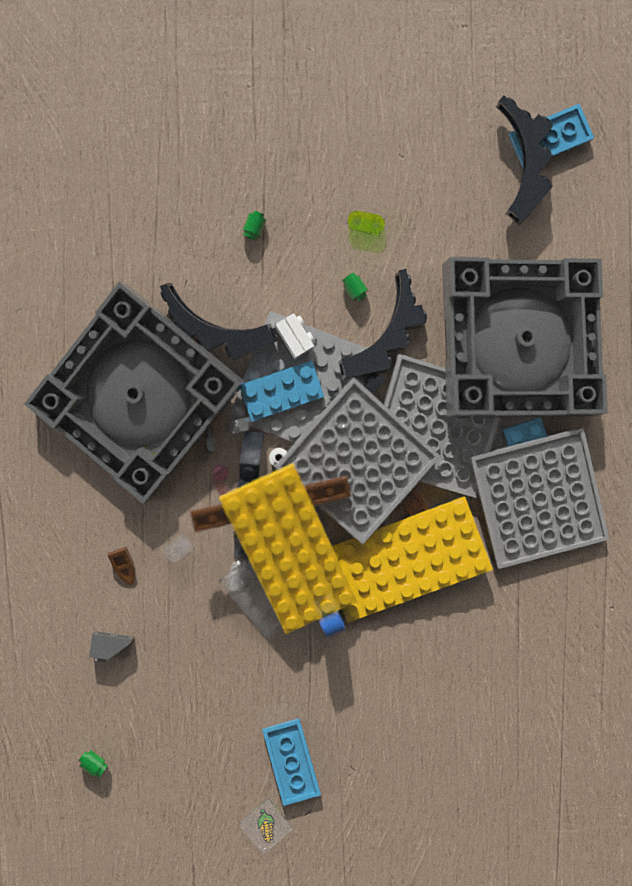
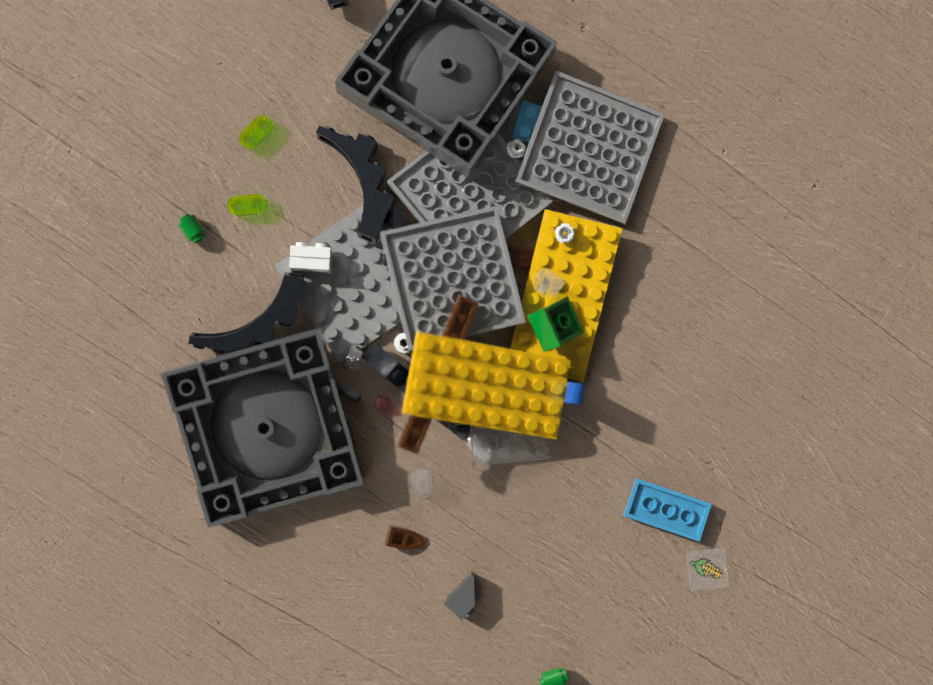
camera: 55 degrees left, 0 degrees up
(282, 391) = (349, 301): dark azure plate -> none
(303, 256) = (247, 204): none -> clear neon green plate
(355, 287) = (304, 179): green brick -> none
(377, 569) = (555, 324): none -> green slope
(407, 540) = (548, 282): none -> clear brick
(461, 526) = (565, 238): none -> white plate
(492, 439) = (512, 152): none -> white plate

